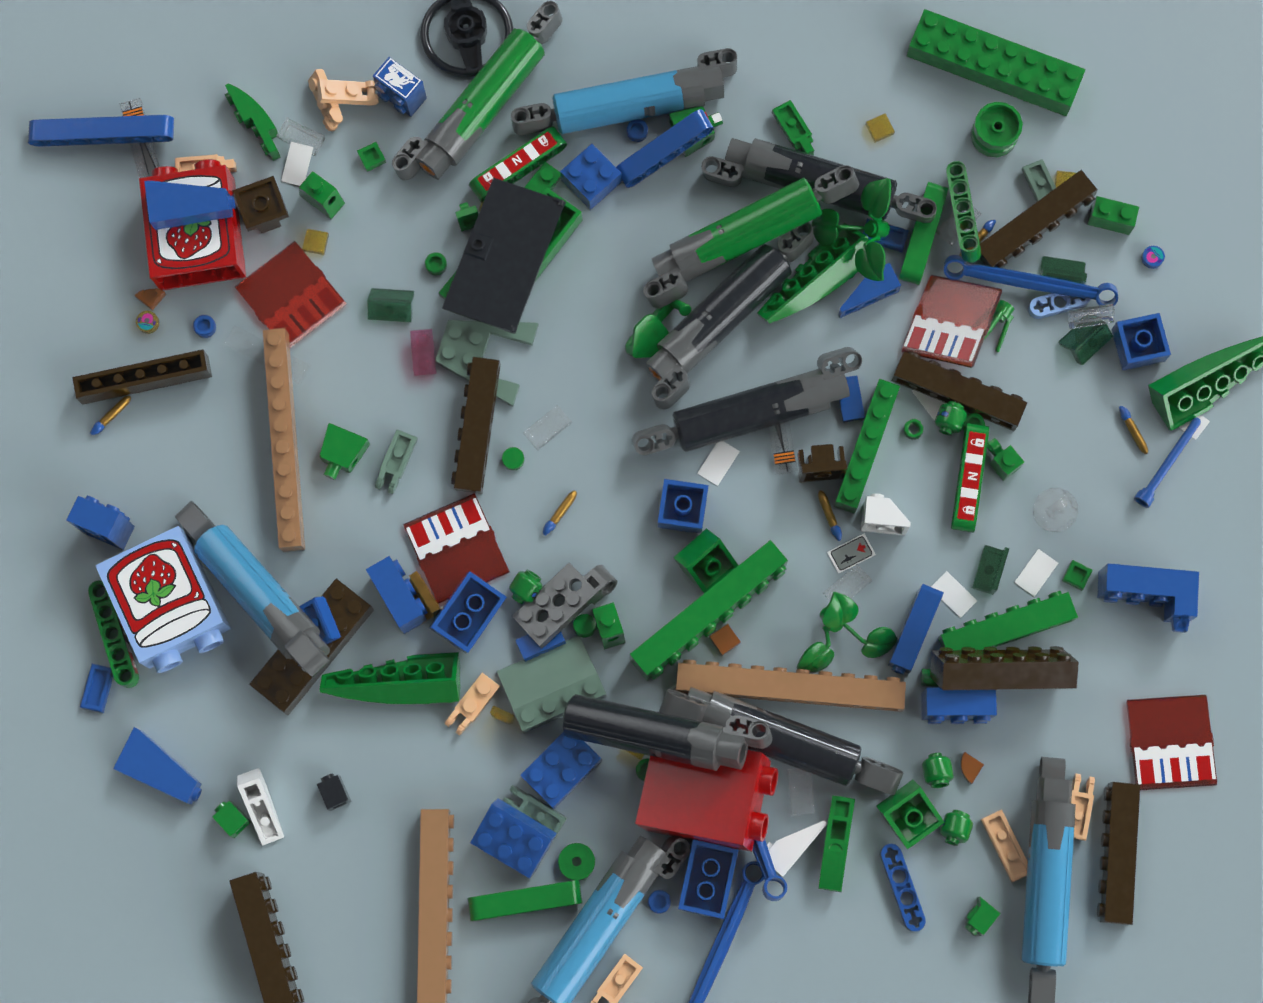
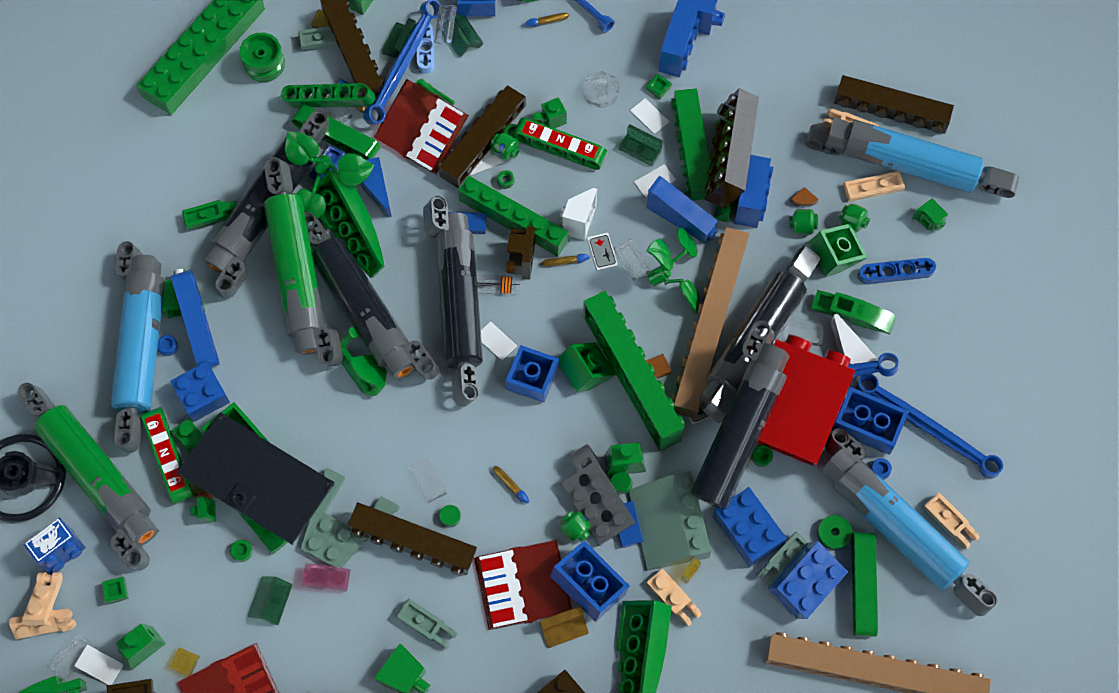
camera: 80 degrees left, 10 degrees down
(397, 594) = (559, 642): blue brick -> none
(880, 127) = (229, 148): clear yellow tile -> none
(1171, 742) = (808, 51): clear red piece -> none

